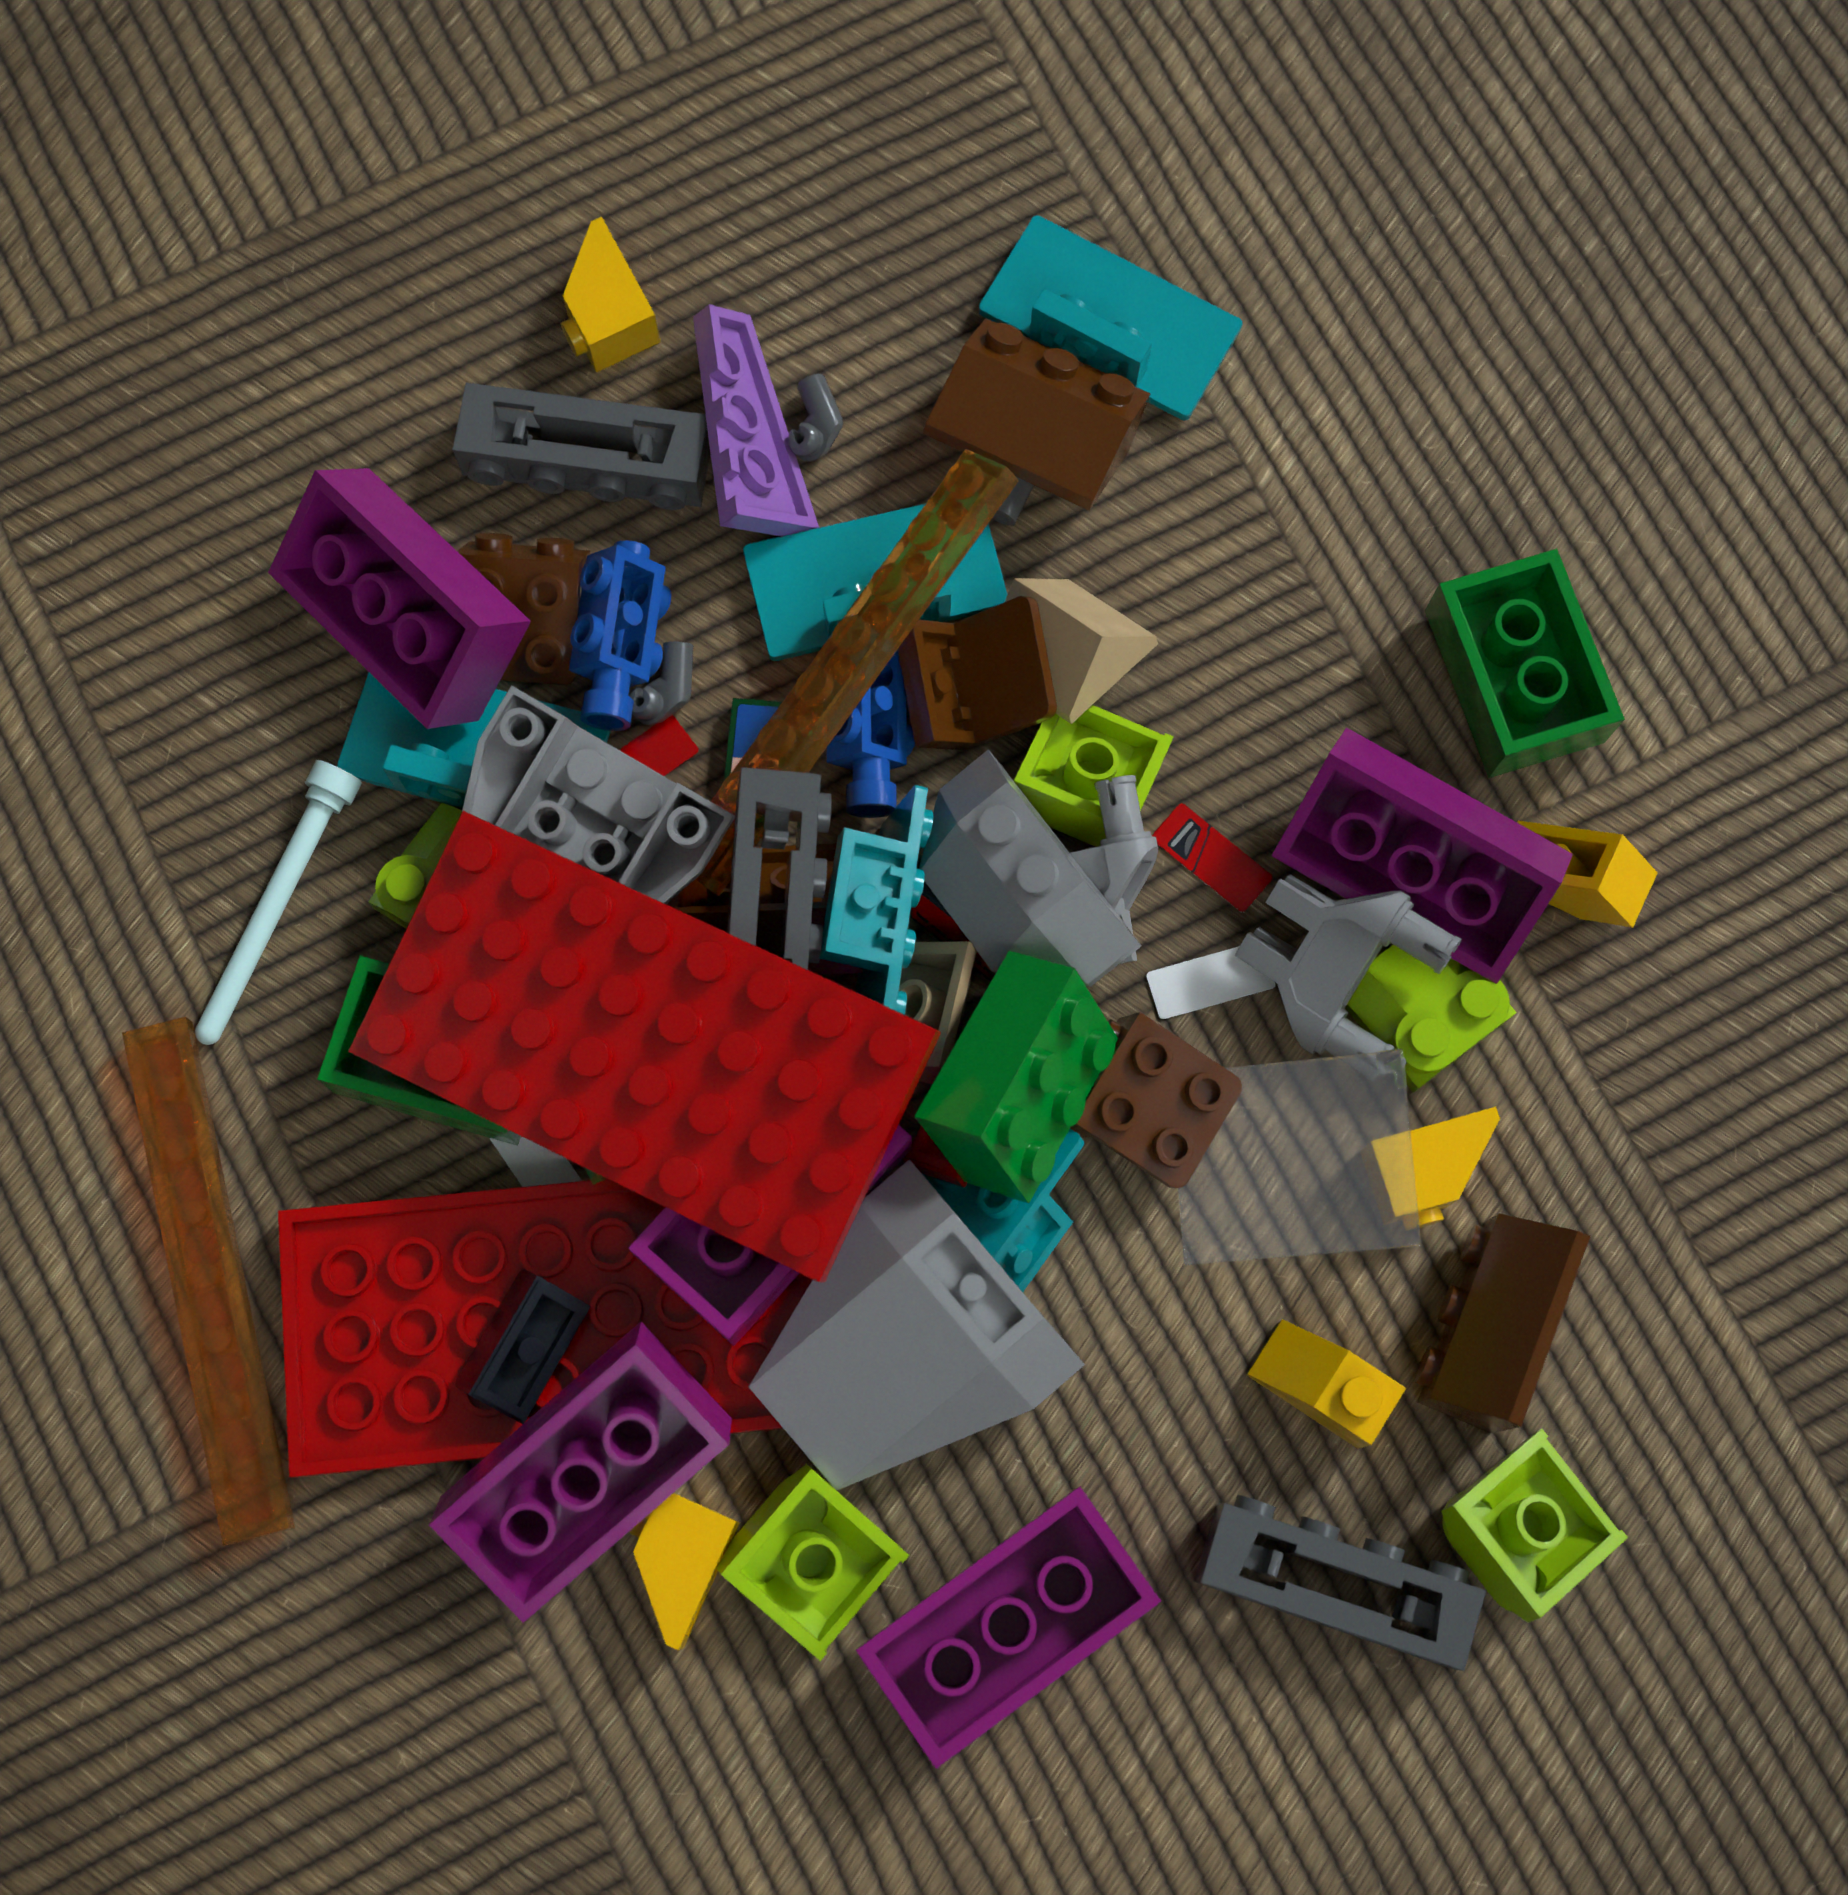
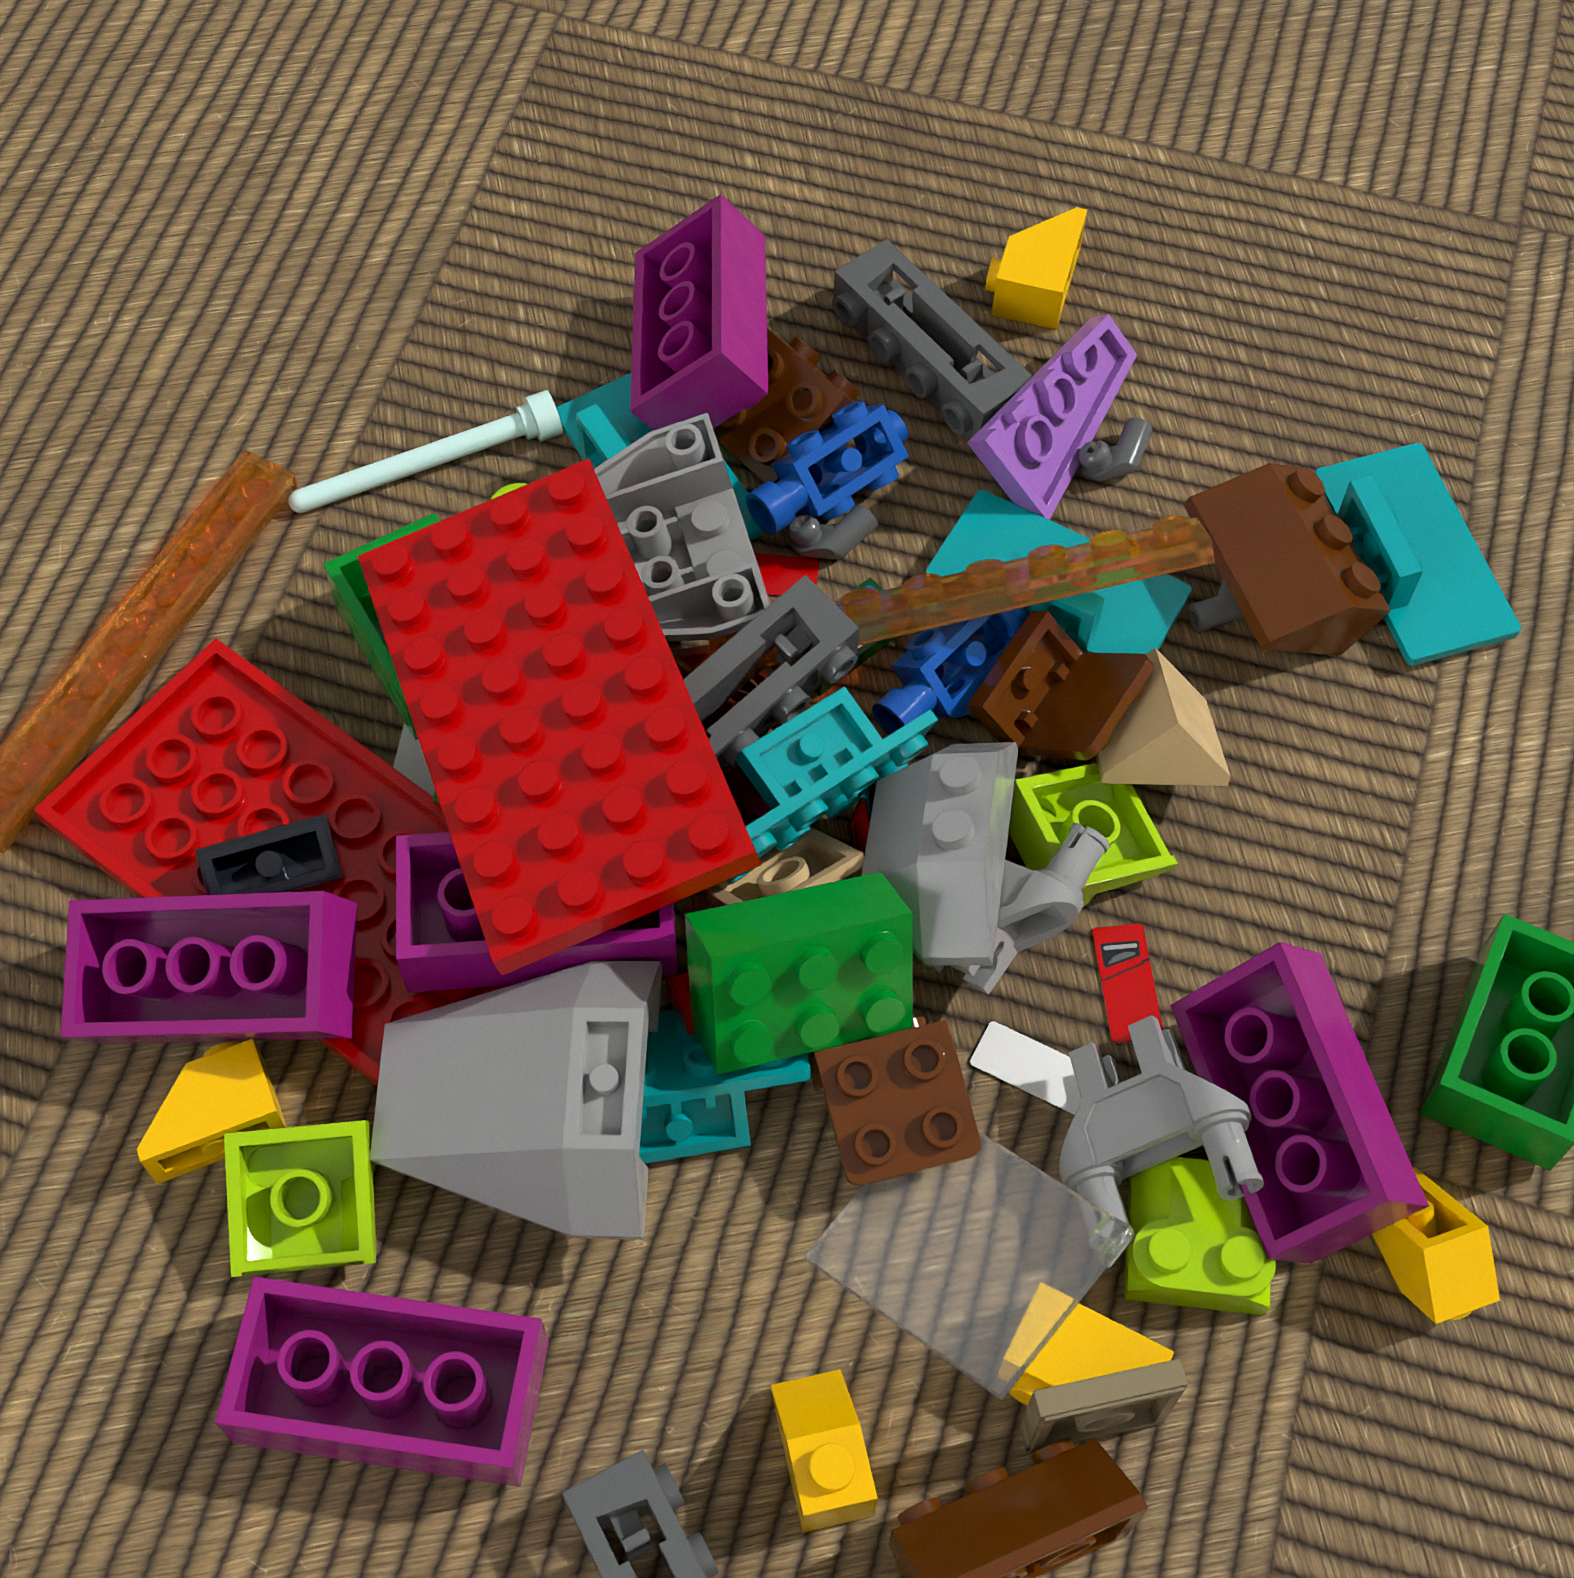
camera: 45 degrees right, 15 degrees down
(1486, 1187) = (1103, 1405): none -> dark tan tile

